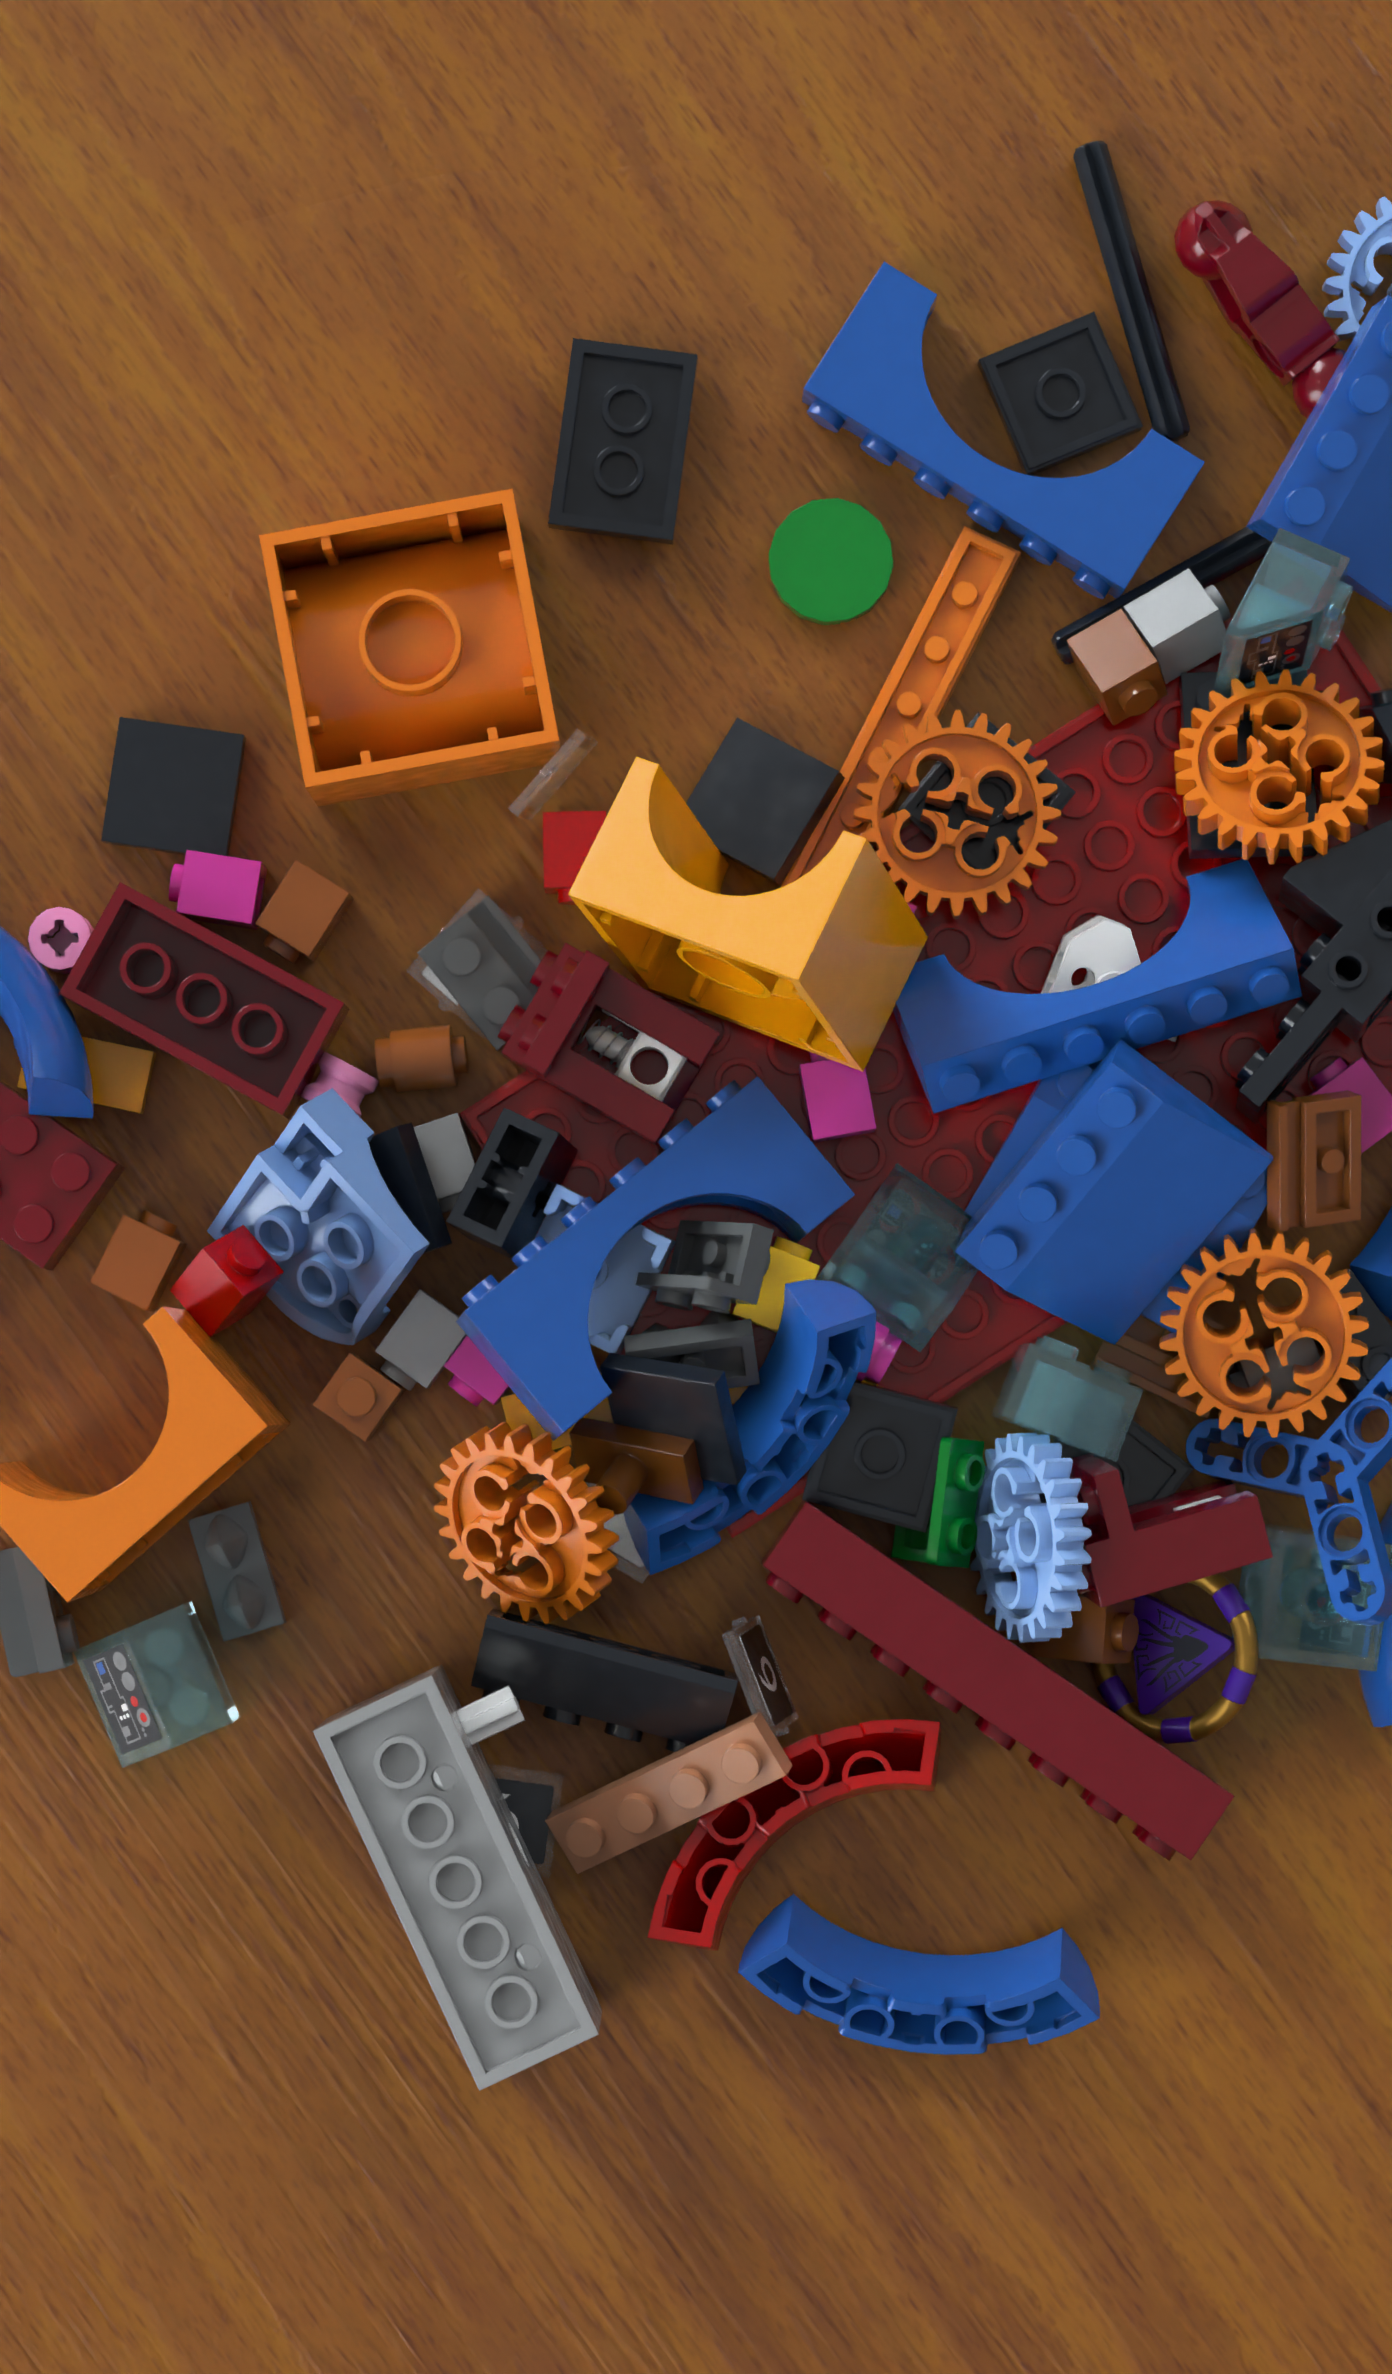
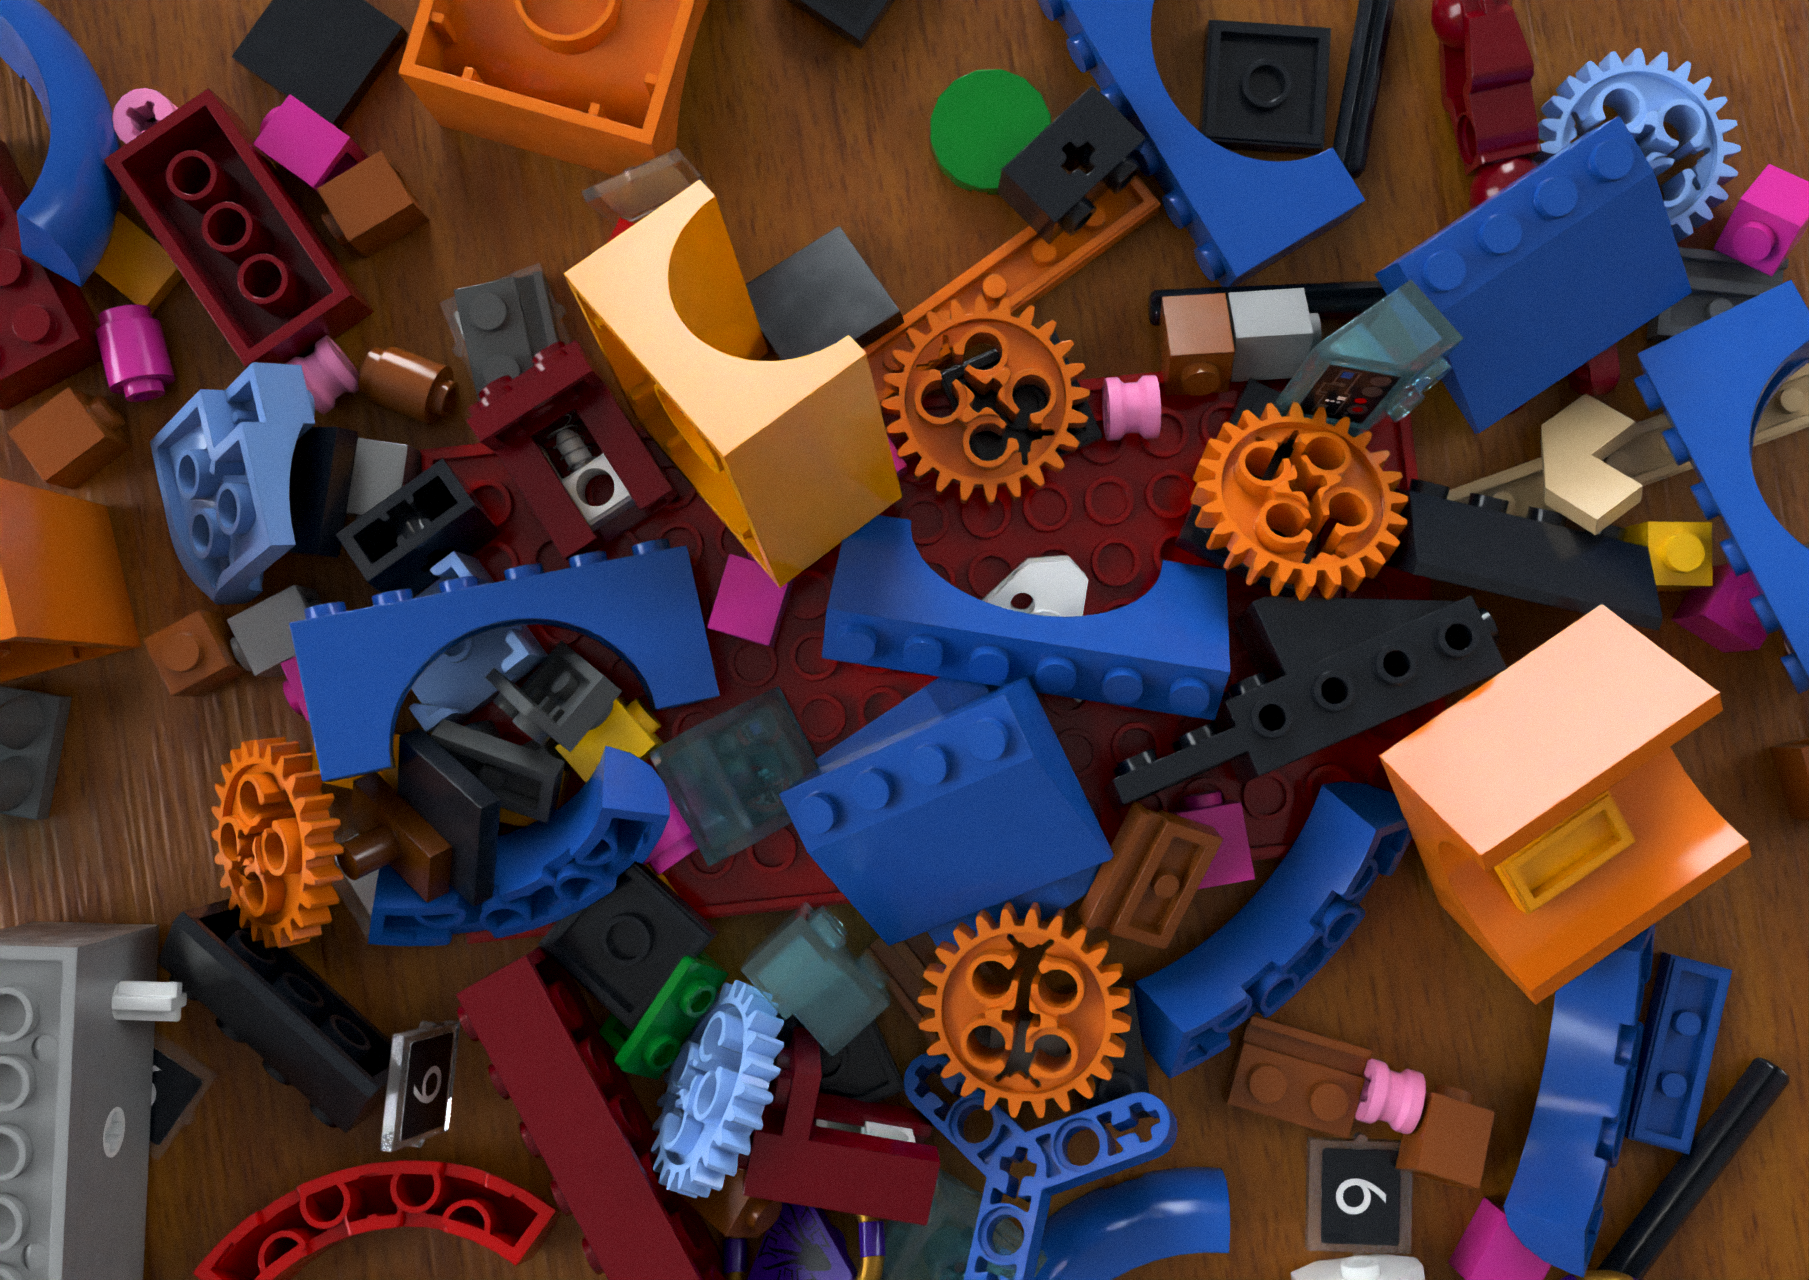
camera: 30 degrees right, 0 degrees up
(156, 1156) = (134, 352): none -> dark pink brick
(226, 1280) = (131, 491): red brick -> none
(669, 1792) = (284, 1149): nougat plate -> none
(924, 527) = (1084, 135): none -> black brick
(1088, 753) = (1131, 407): none -> bright pink wheel

